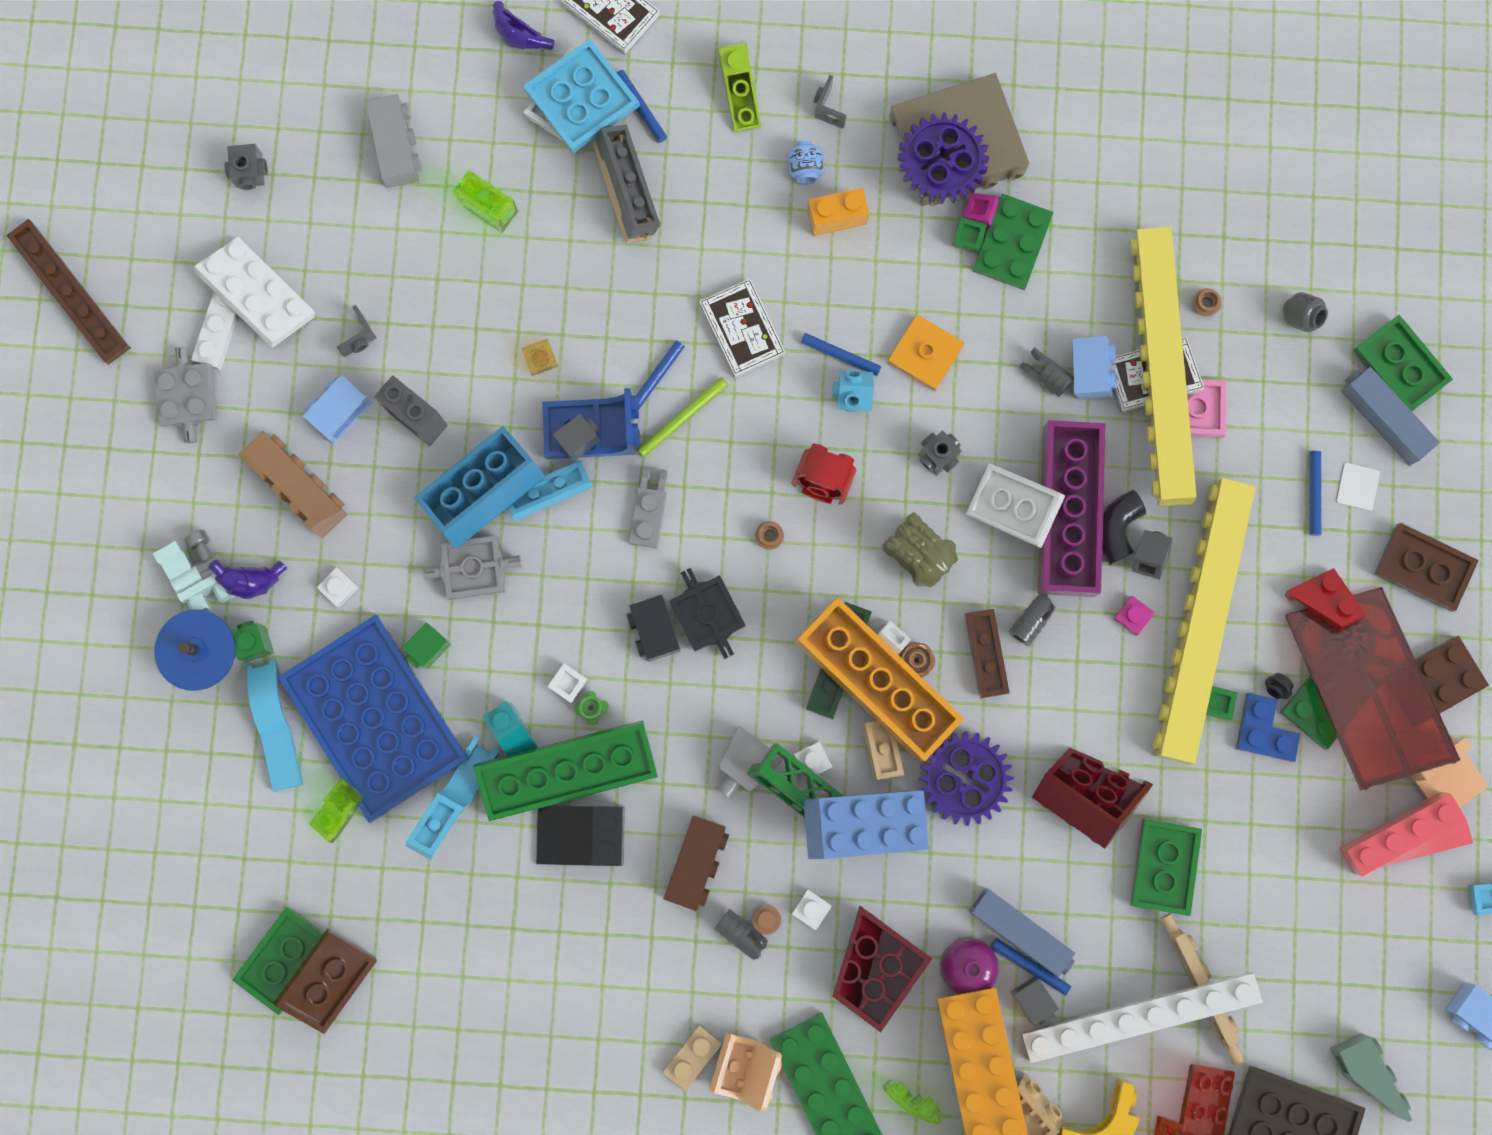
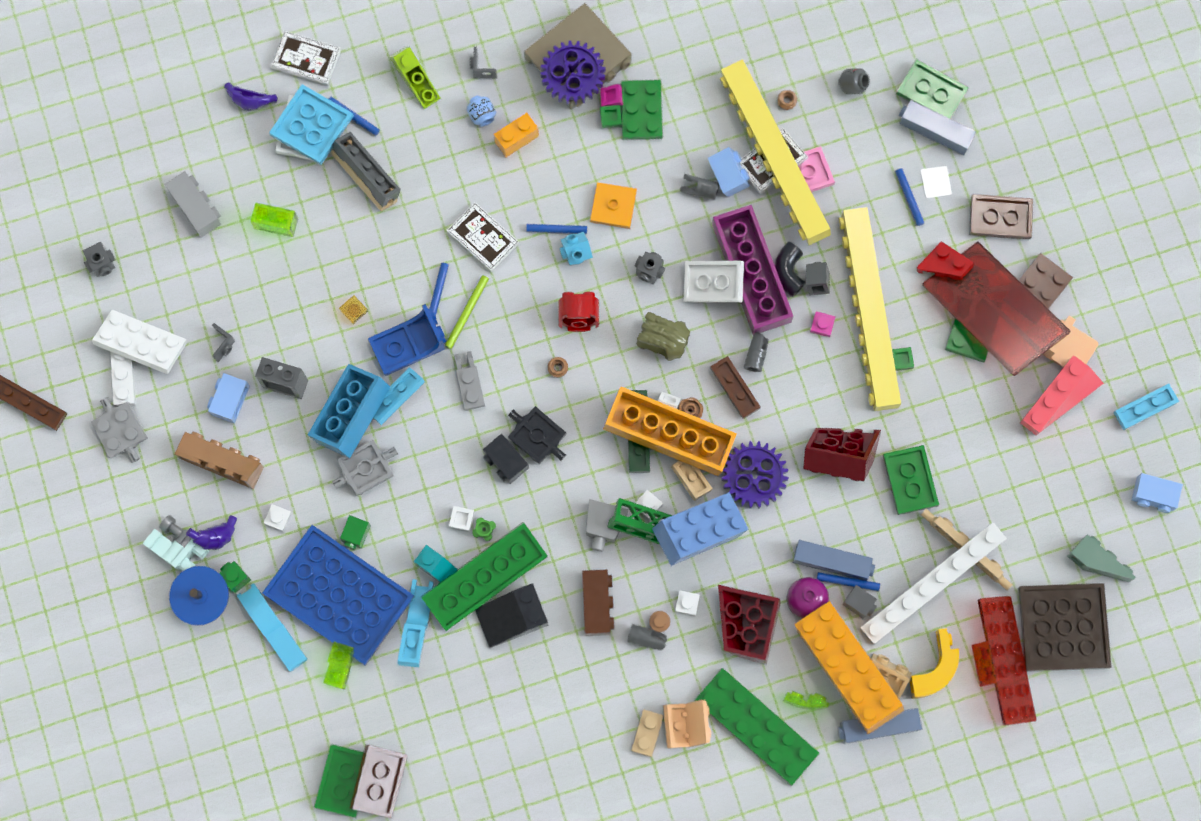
camera: 20 degrees left, 5 degrees down
(577, 436) = (402, 351): dark grey brick -> none
(1259, 736) = (937, 370): blue plate -> none
(1279, 686) = (936, 332): black plate -> none

